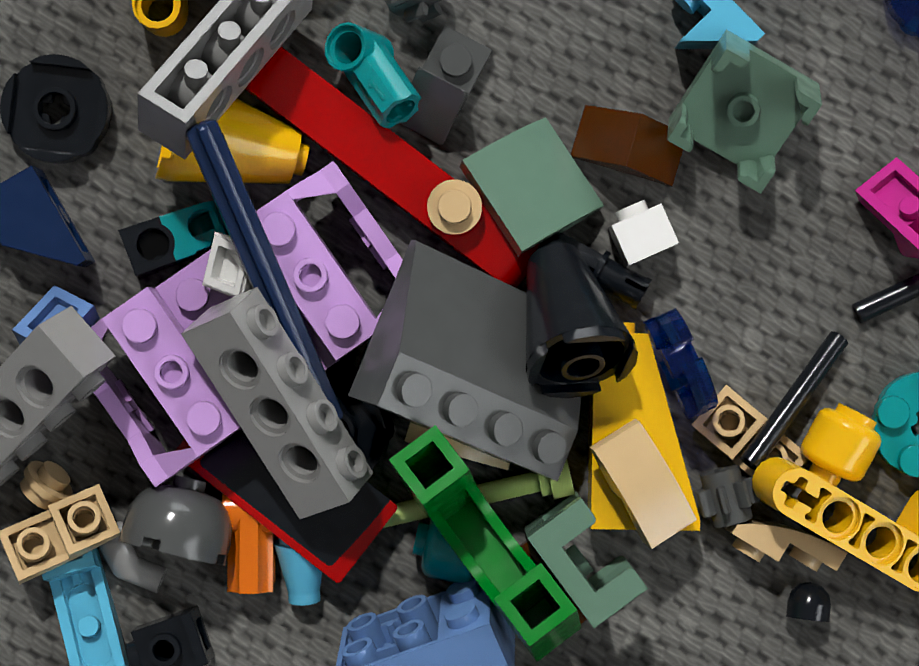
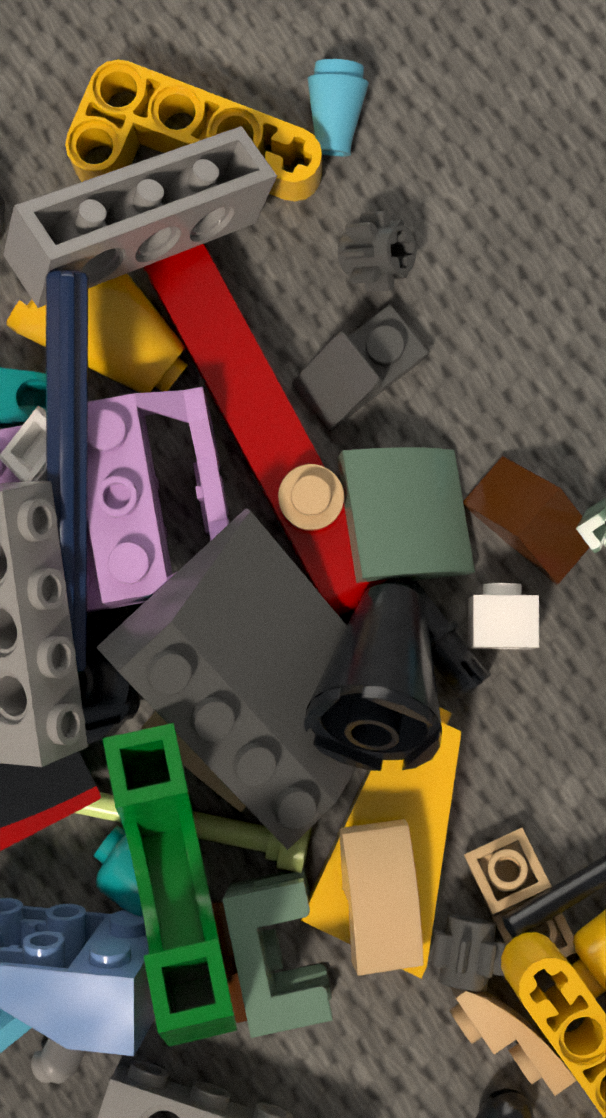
camera: 30 degrees right, 5 degrees down
(373, 73) = (290, 317): teal piece -> none
(681, 363) = (482, 782): clear blue plate -> none

